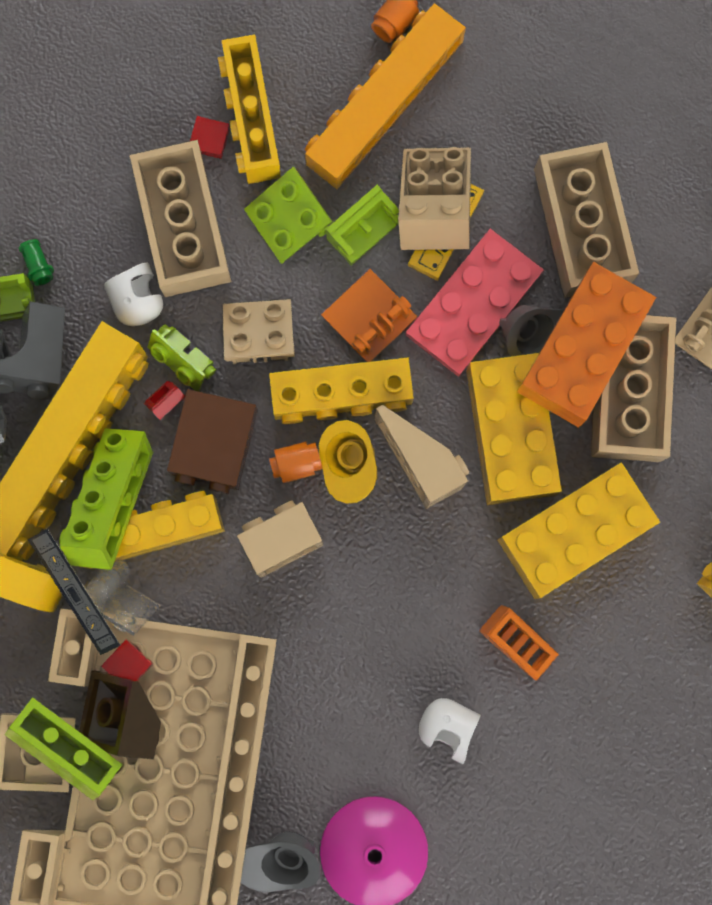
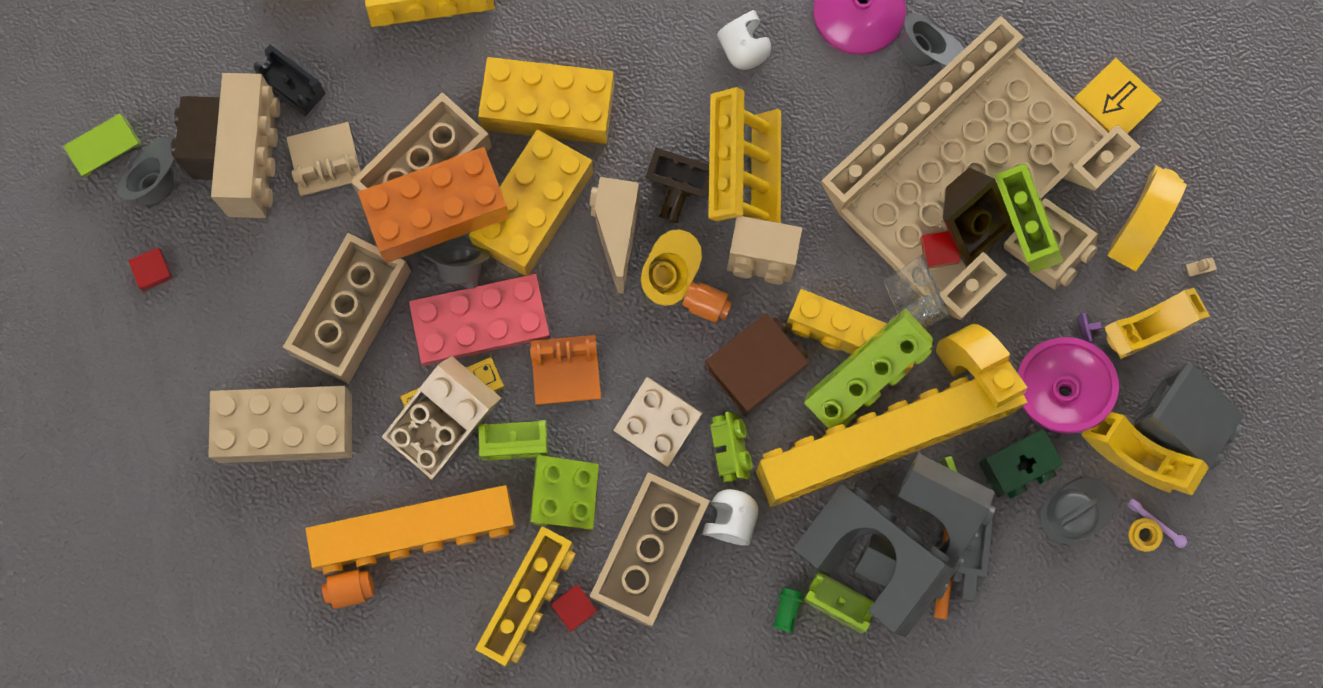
camera: 140 degrees left, 5 degrees down
(73, 592) = (943, 316): sticker -> none
(164, 399) = (769, 422): red tile -> none
(341, 389) = (632, 328): yellow brick -> none
(375, 591) = (727, 159): none -> yellow fence
(403, 552) = (681, 177): none -> dark brown brick
(497, 622) = (654, 83): orange slope -> none
(556, 92) = (280, 424): none -> tan brick

